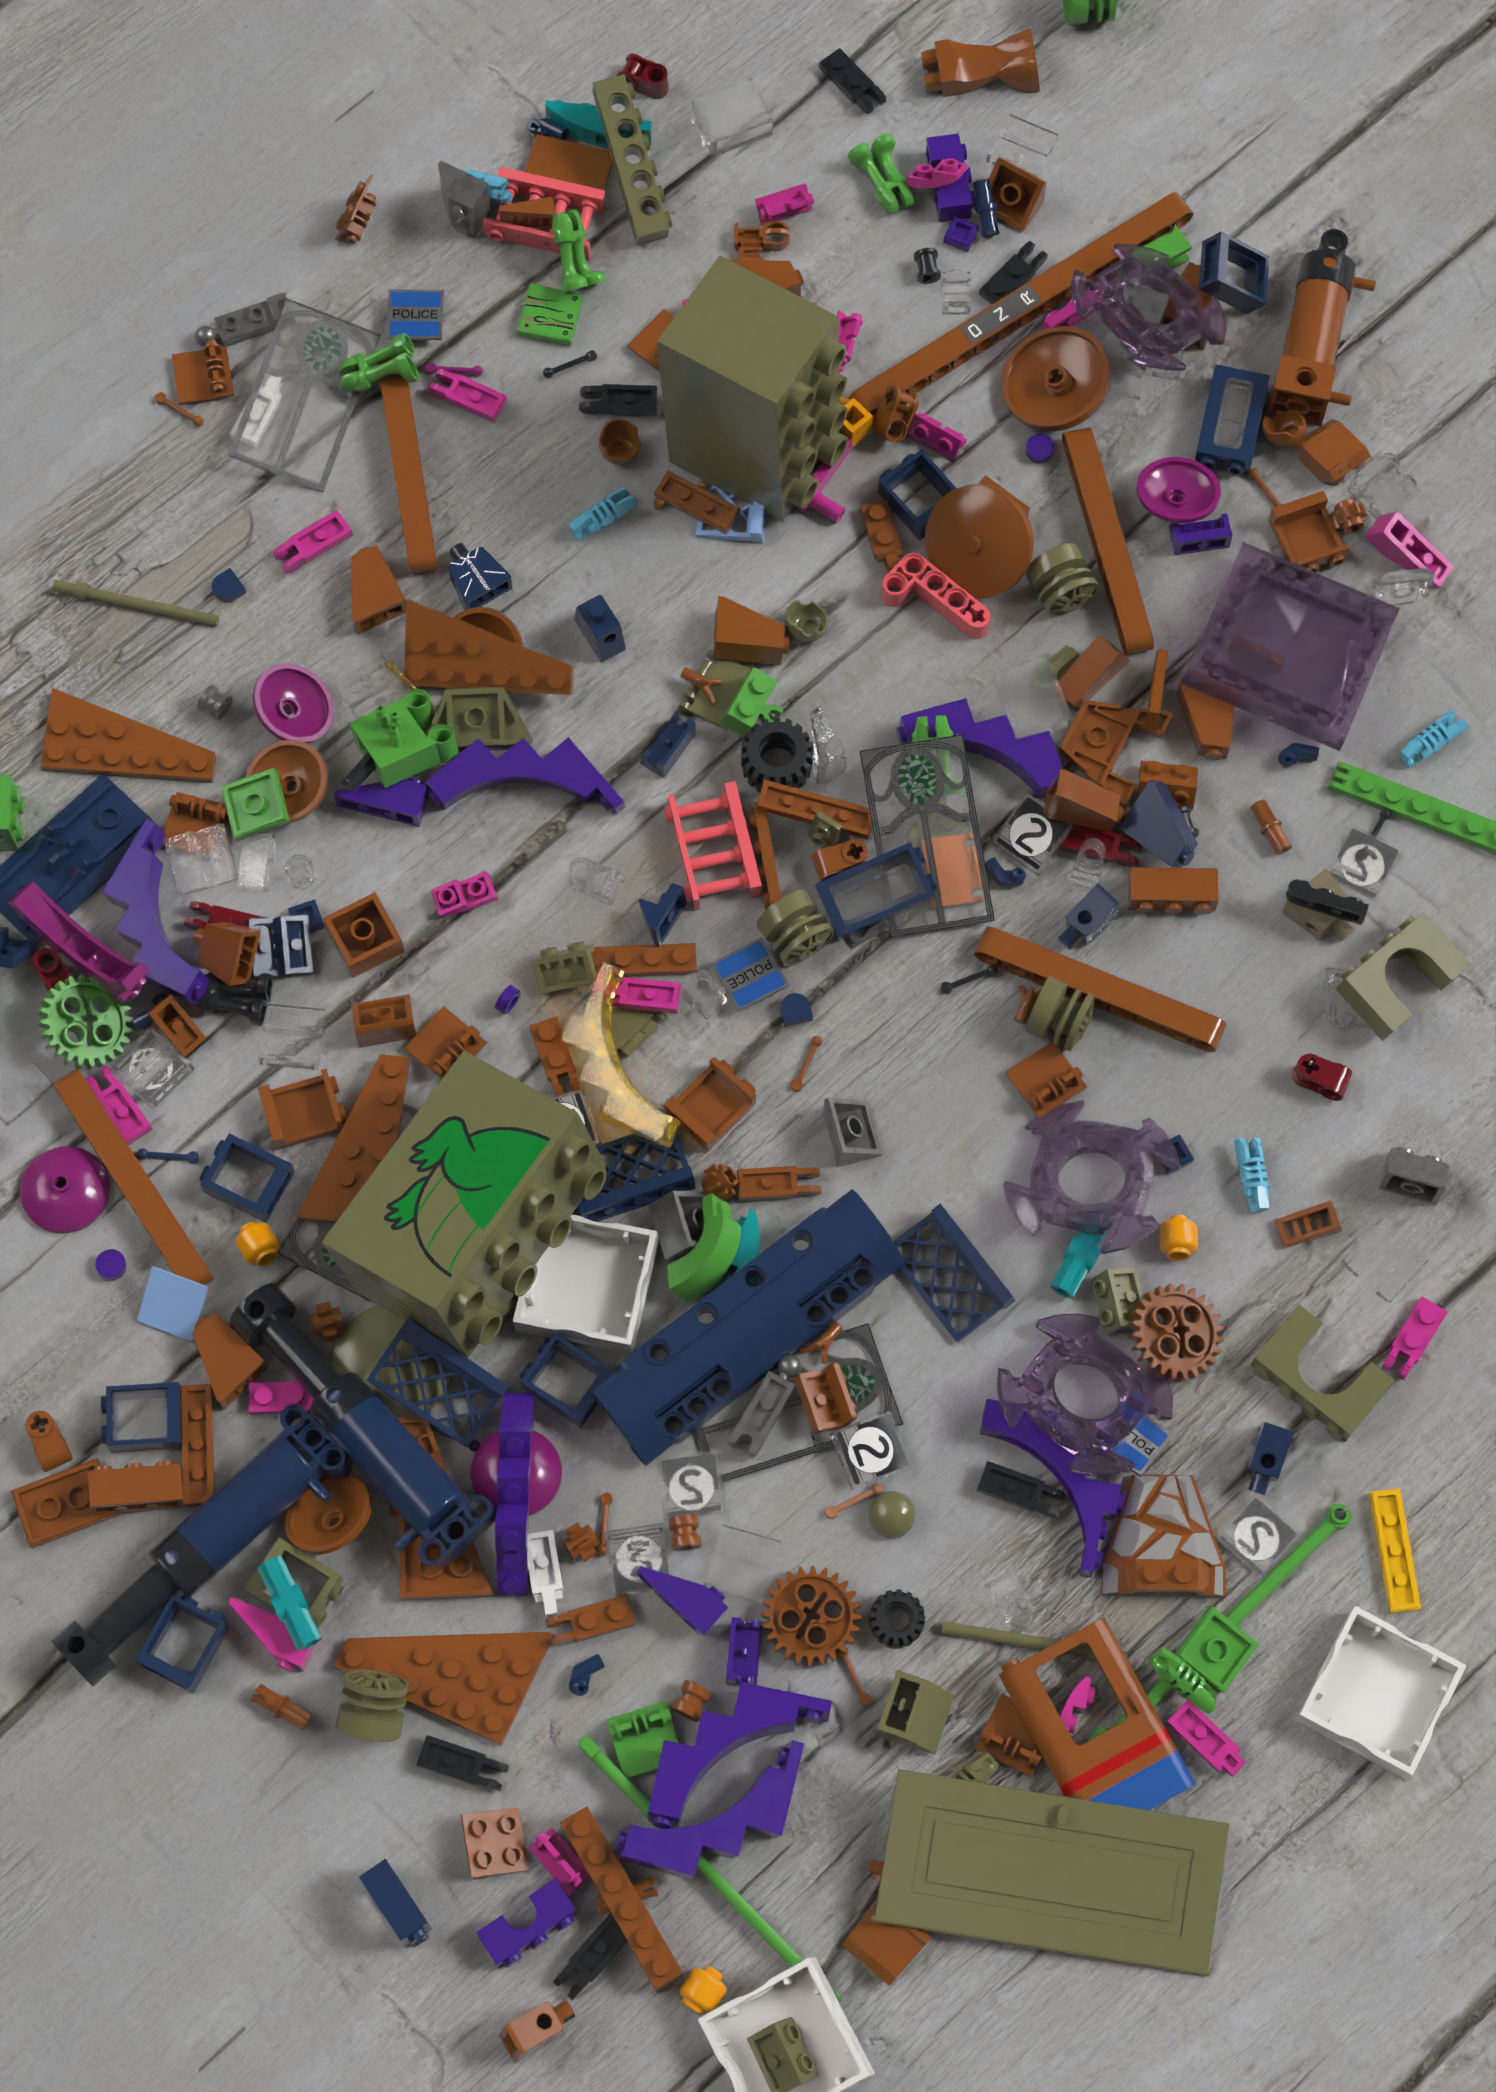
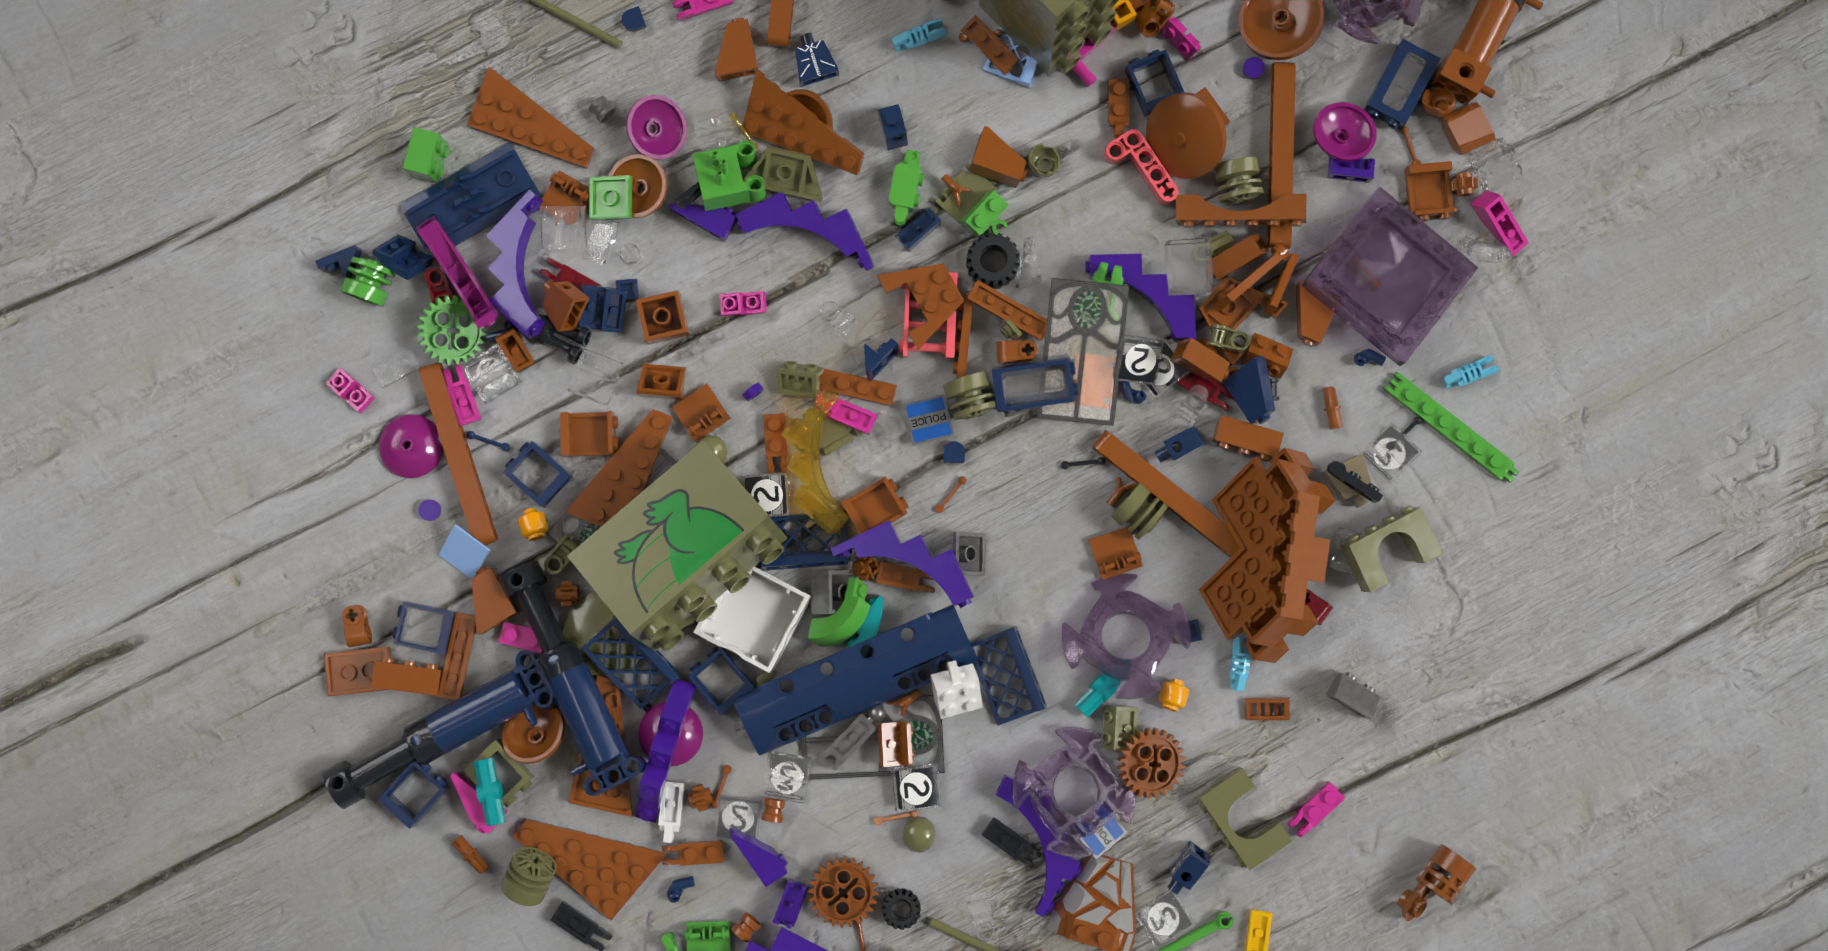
camera: 15 degrees right, 15 degrees up
(309, 1270) = (560, 552): none -> olive piece
(636, 698) = (904, 186): none -> bright green hinge
(710, 811) = (933, 292): none -> dark orange wing
(737, 1135) = (885, 542): none -> dark purple arch
(887, 1301) = (956, 690): none -> white hinge
(1002, 824) = (1138, 359): none -> slope
(1020, 631) = (1287, 209): none -> dark orange arch
(1101, 708) = (1278, 254): none -> dark orange plate
(1107, 771) = (1226, 339): none -> olive piece
(1257, 1008) = (1267, 578): none -> dark orange brick

